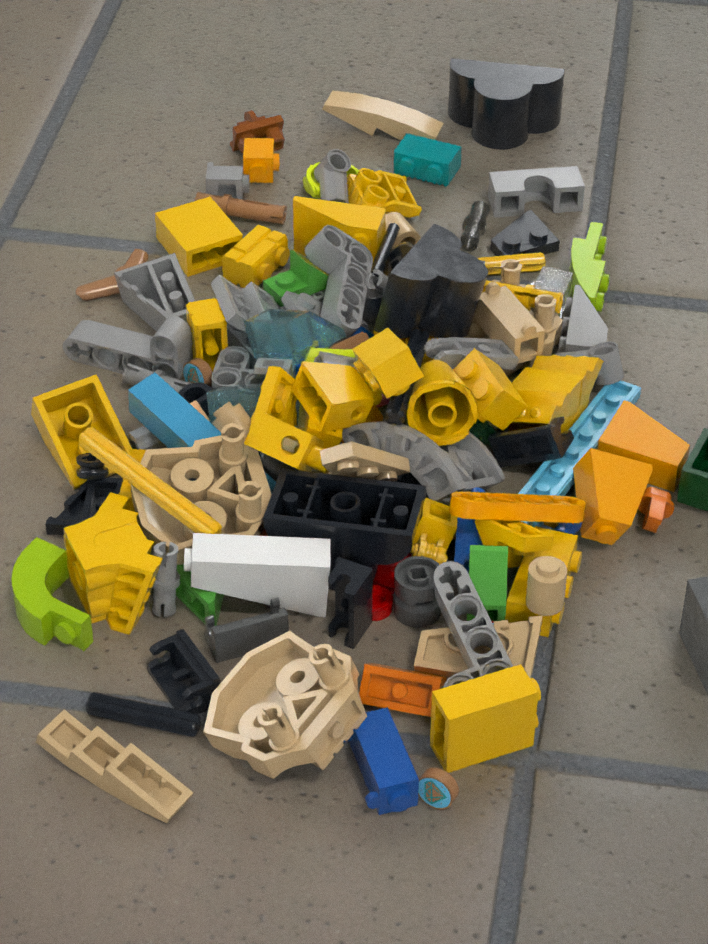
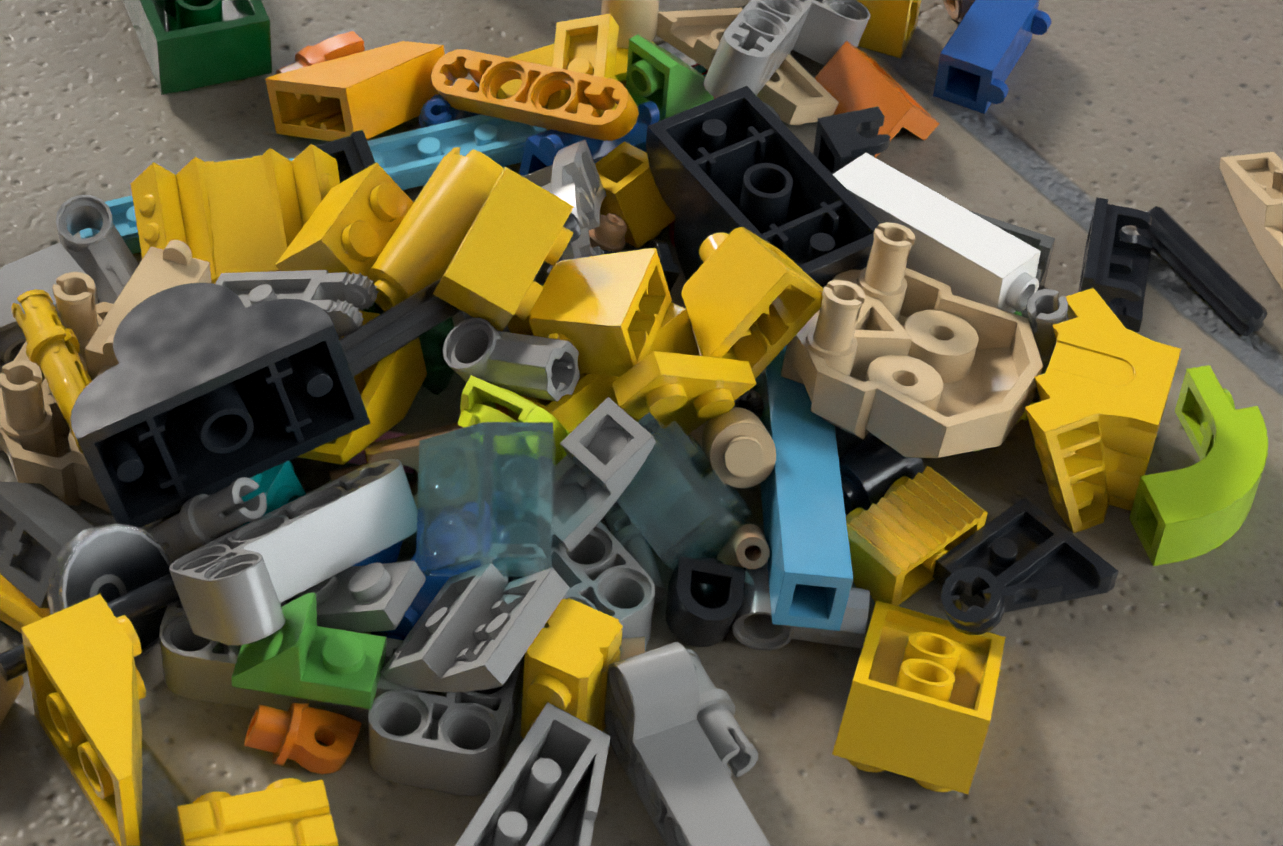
camera: 140 degrees left, 5 degrees up
(148, 483) = (998, 379): yellow axle -> none
(286, 706) = (1055, 115): tan brick -> none
(363, 462) = (690, 202): tan wing -> none
(644, 439) = (217, 115): light orange slope -> none

